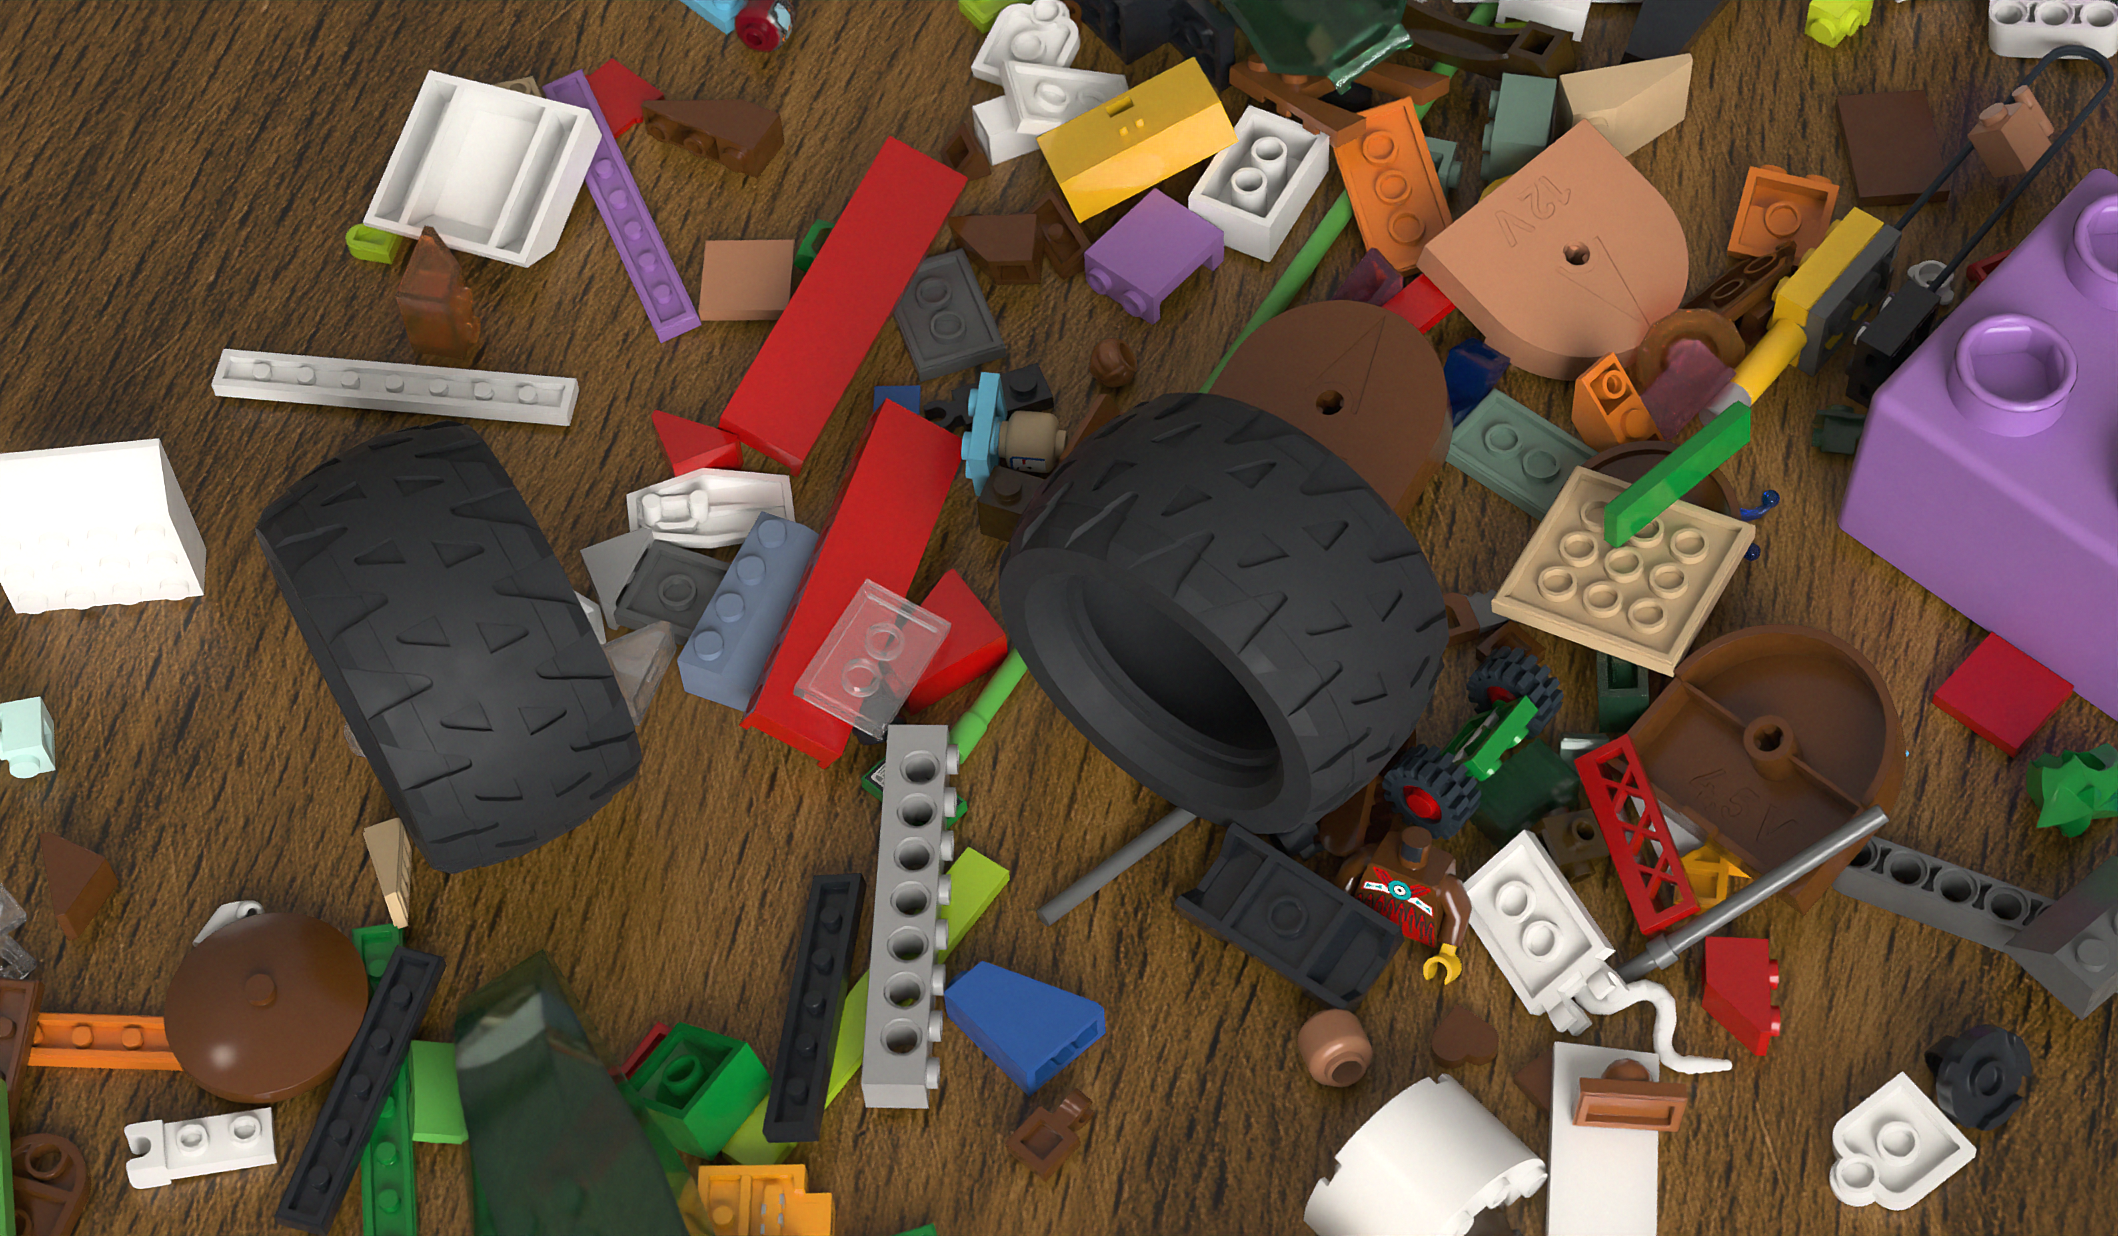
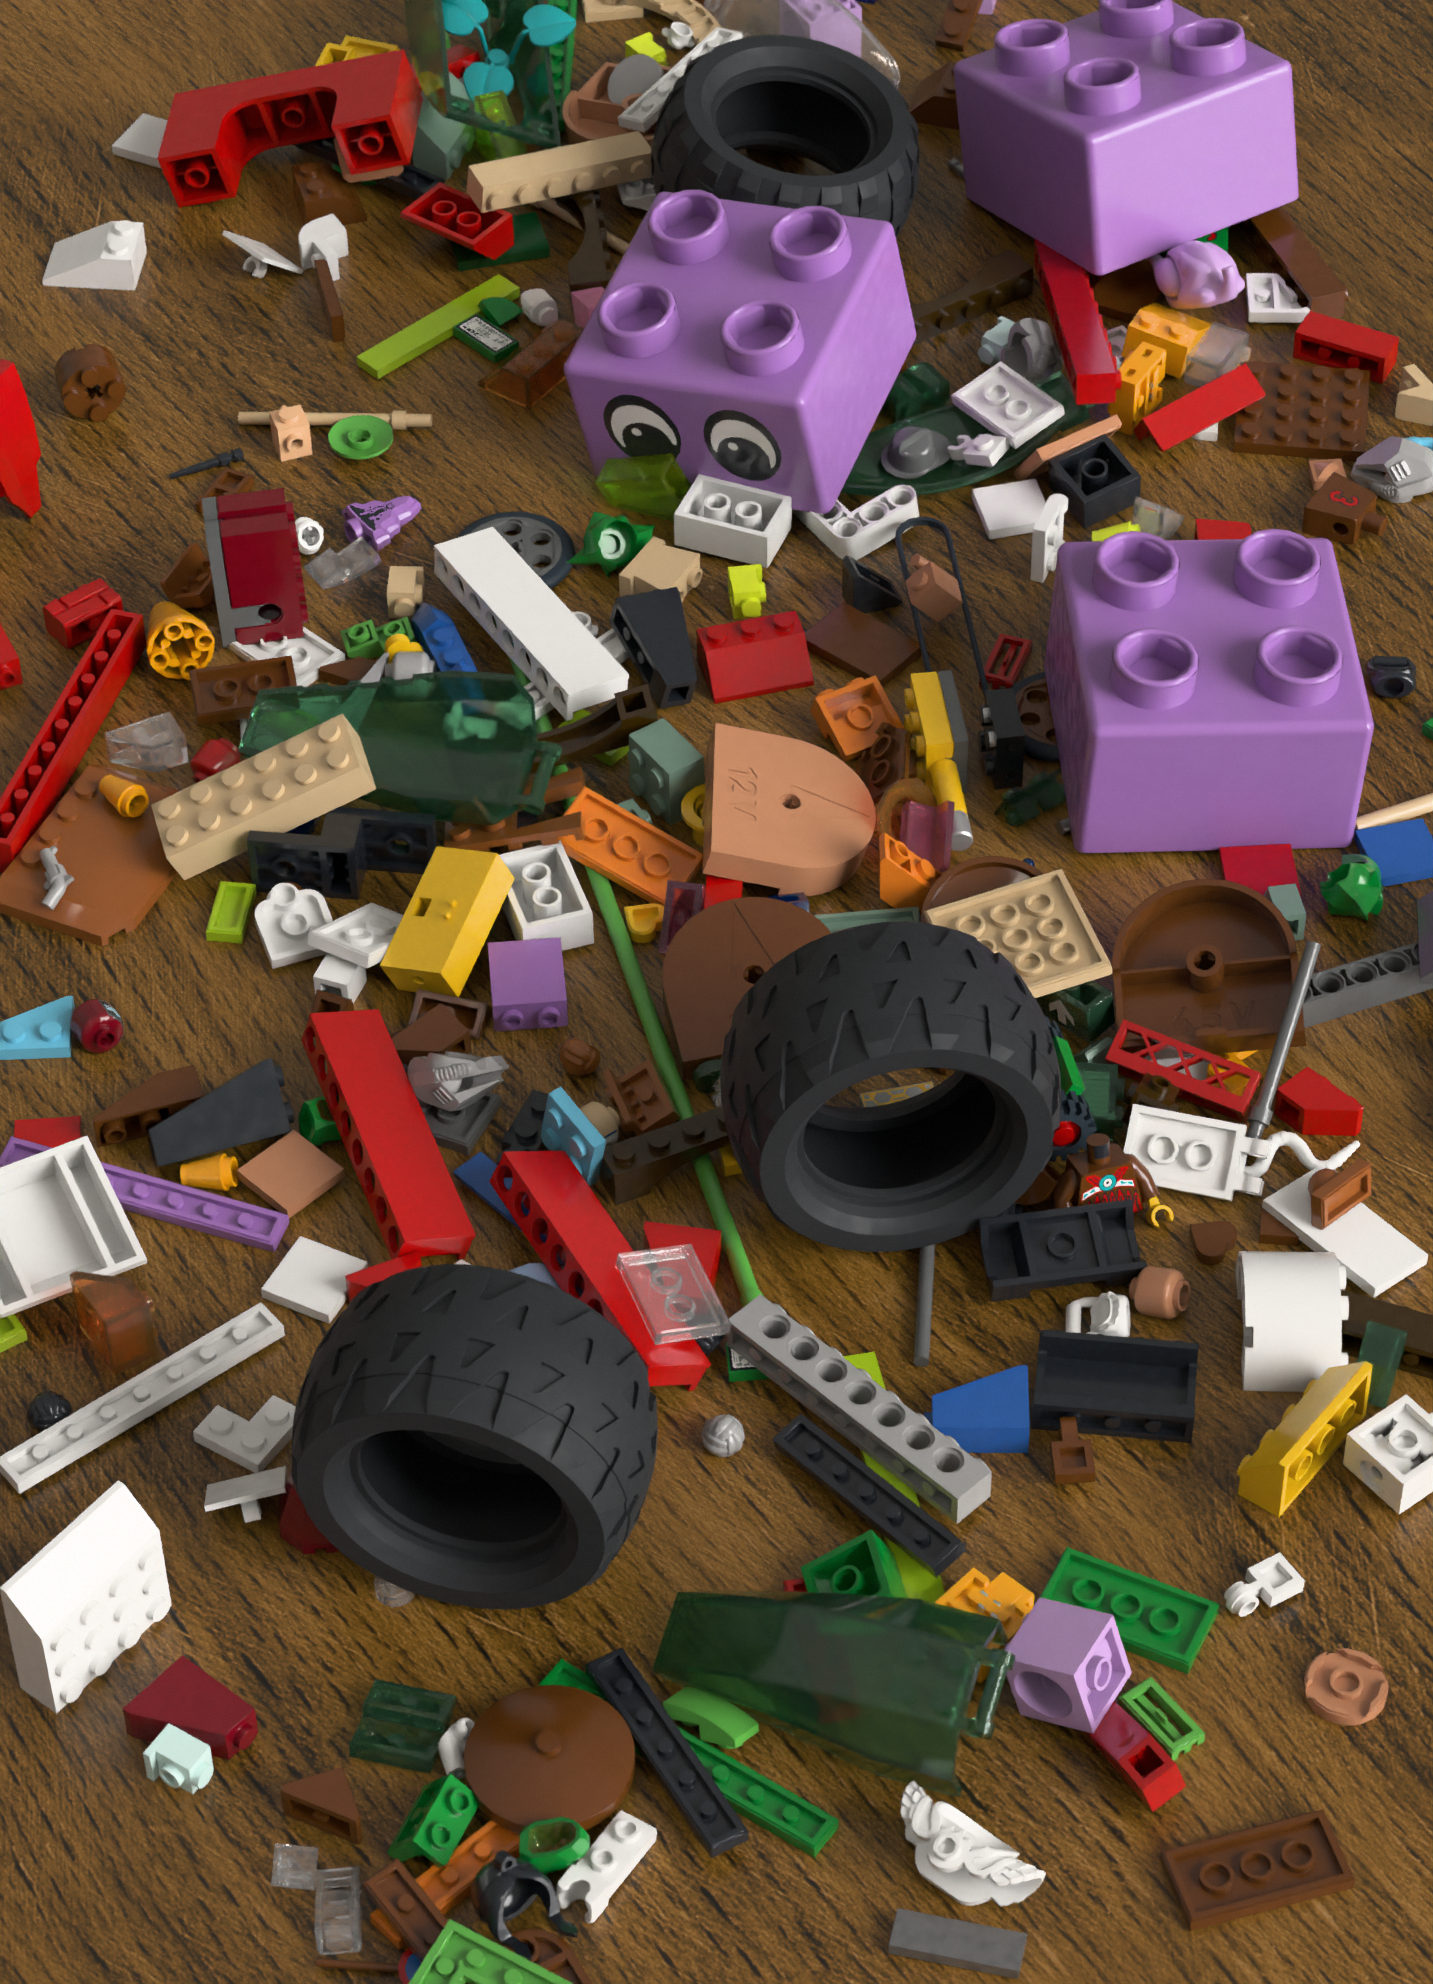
camera: 50 degrees left, 10 degrees down
(84, 1089) = (507, 1889): none -> black hair
(87, 701) = (195, 1705): none -> dark red slope
(121, 979) = (435, 1822): none -> green bracket
(164, 1085) = (553, 1844): none -> green rock
(219, 864) = (402, 1726): none -> clear green slope
(317, 338) = (48, 1410): none -> black piece
(392, 862) = (524, 1634): tan slope -> none
(647, 383) = (312, 1279): none -> white tile
(689, 227) = (211, 1173): none -> light orange cone
(747, 185) = (226, 1117): none -> black slope
(783, 834) = (723, 1435): none -> light grey piece
(959, 295) = (454, 1078): none -> light grey helmet
(1179, 1107) = (1116, 1385): none -> black panel
(1256, 1034) = (1108, 1315): none -> white piece
(1332, 273) = (643, 921): none -> yellow tile
(1626, 101) = (701, 707): tan slope -> none
(1677, 474) = (994, 869): green tile -> none
(1762, 84) = (754, 657): none -> red slope
(1926, 273) = (970, 698): white plate -> none
(1962, 87) = (867, 588): none -> black slope
(1966, 755) = (1289, 903): none -> sand green brick

